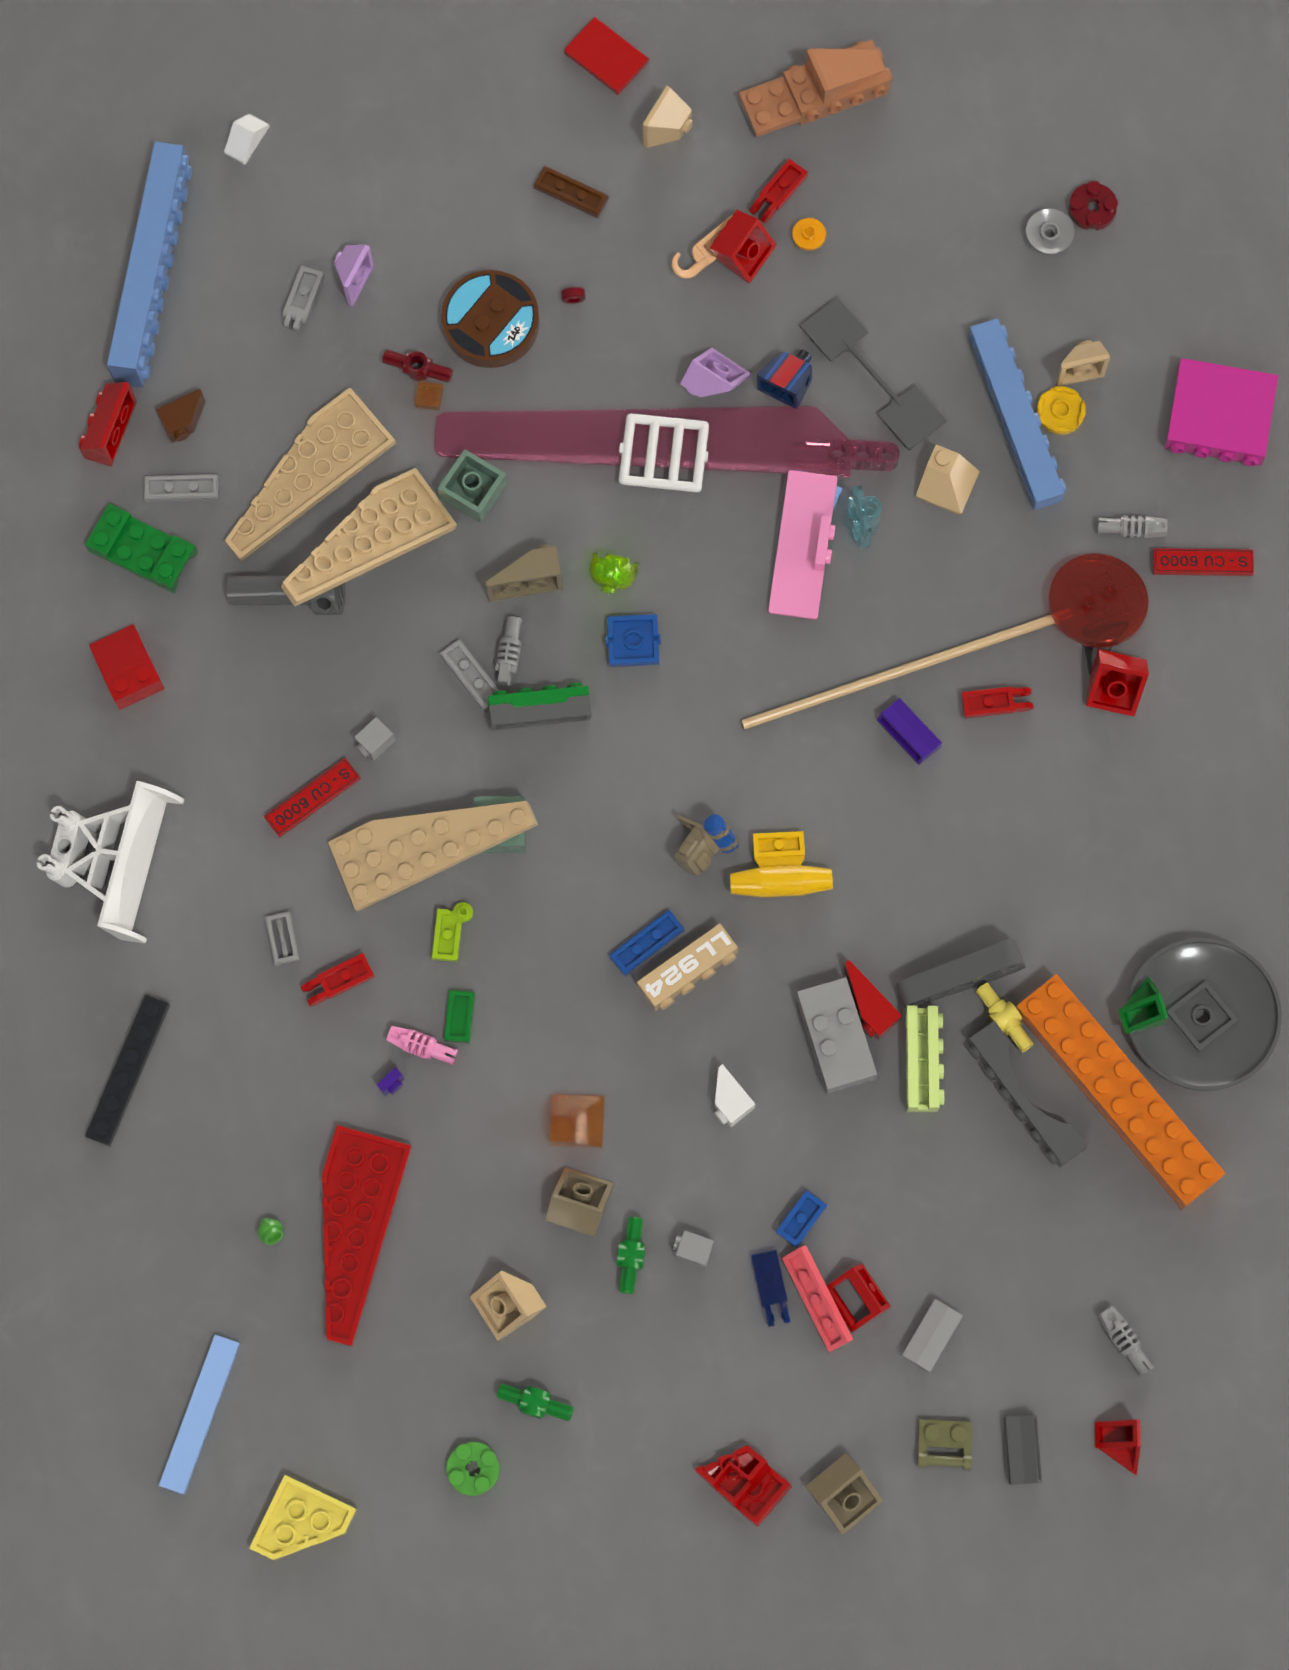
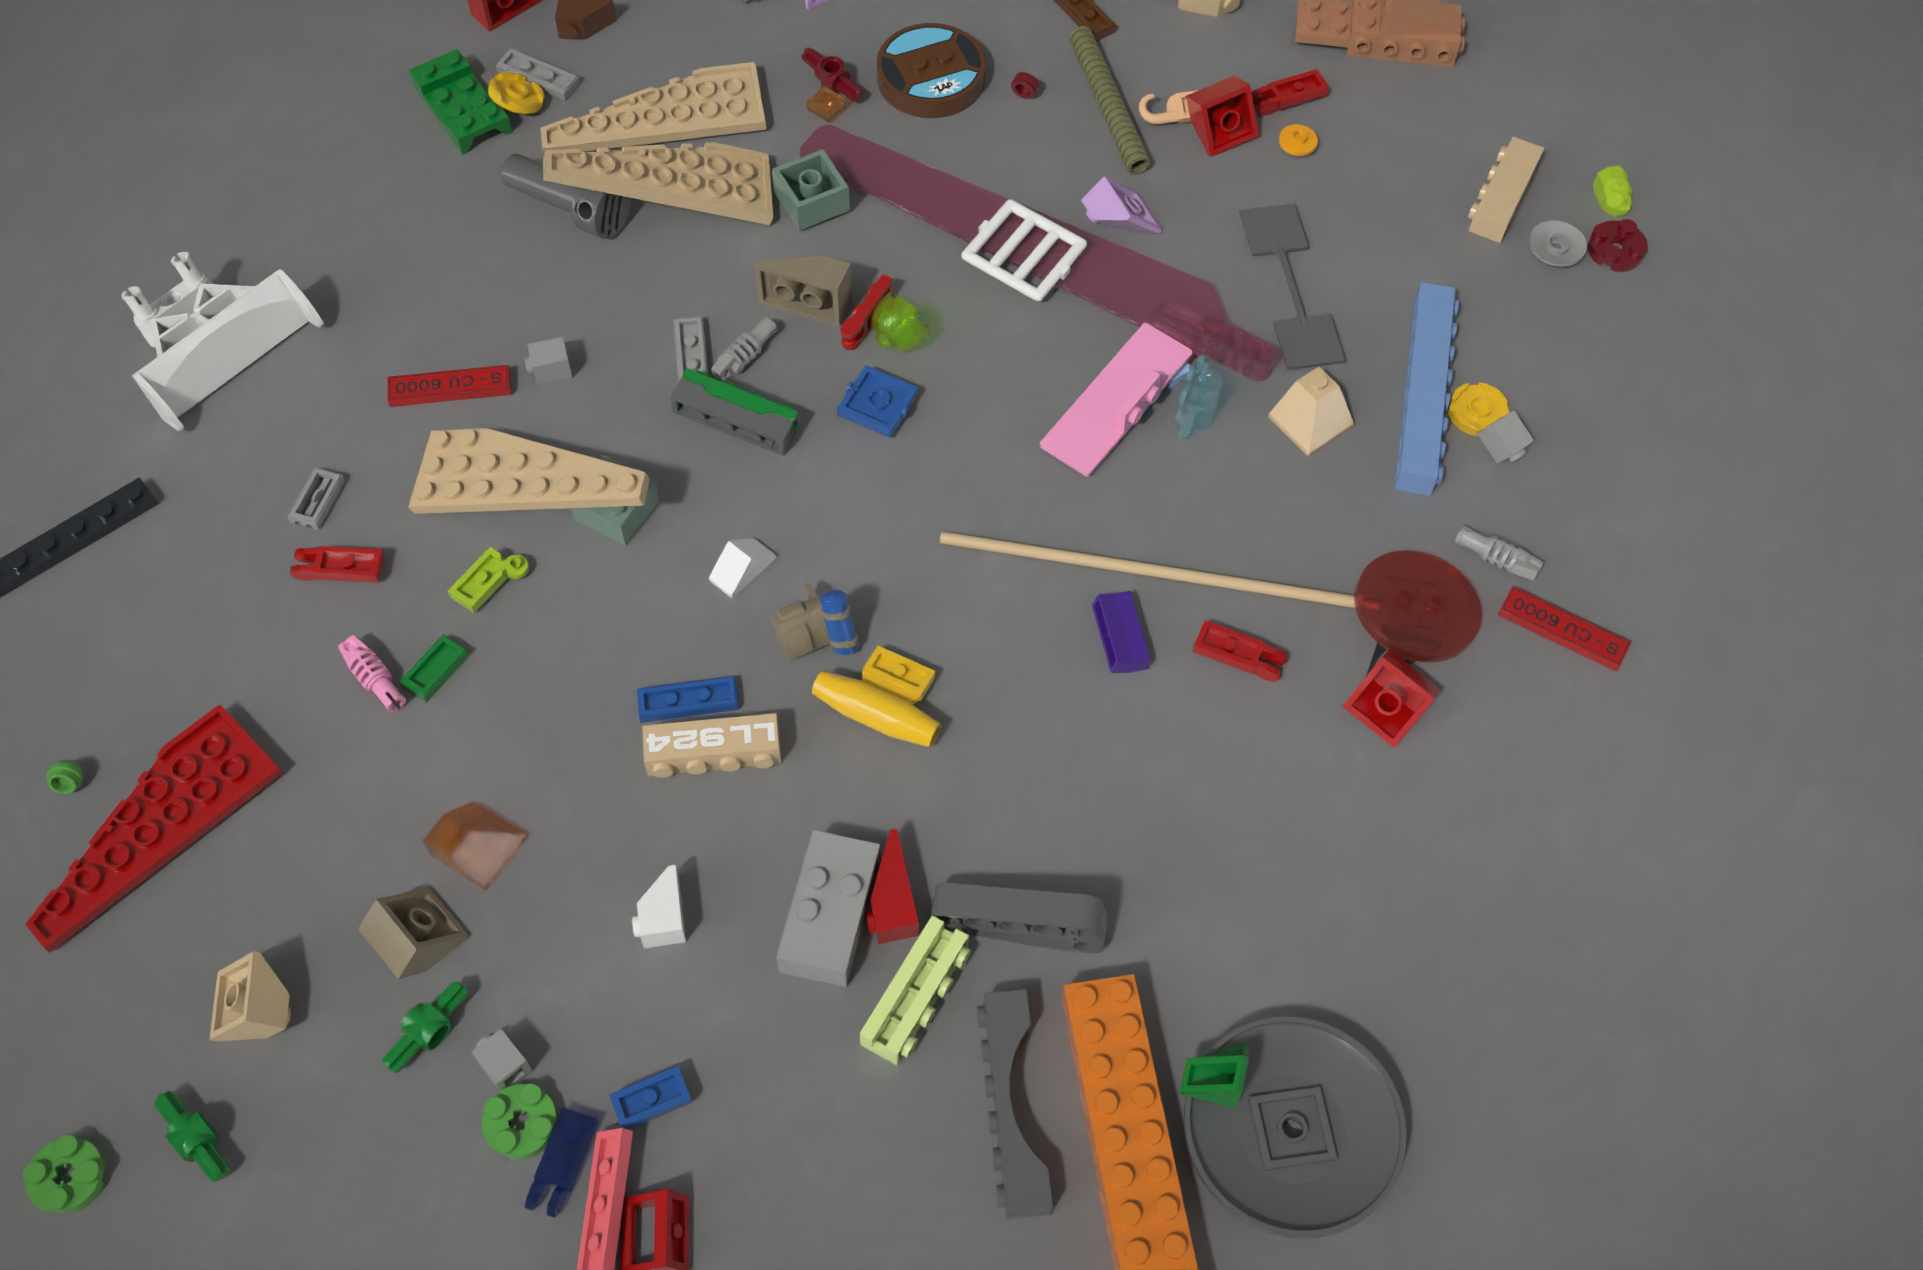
camera: 25 degrees right, 15 degrees down
(126, 667) = (363, 191): red slope -> none
(182, 518) = (515, 93): none -> yellow tile
(391, 1082) = (309, 691): dark purple plate -> none
(578, 572) = (858, 326): none -> red hinge
(619, 824) = (740, 564): none -> white slope
(641, 270) = (1109, 100): none -> olive piece
(714, 1280) = (502, 1109): none -> bright green plate
(786, 377) = (1195, 243): dark blue torso -> none
(988, 199) = (1505, 190): none -> tan brick
(1005, 1016) = (1044, 997): light yellow pin -> none
(1068, 157) = (1613, 190): none -> lime rock
(1083, 363) = (1525, 372): tan slope -> none
(1093, 429) = (1506, 438): none -> light grey brick
(1221, 412) = (1663, 489): dark pink panel -> none

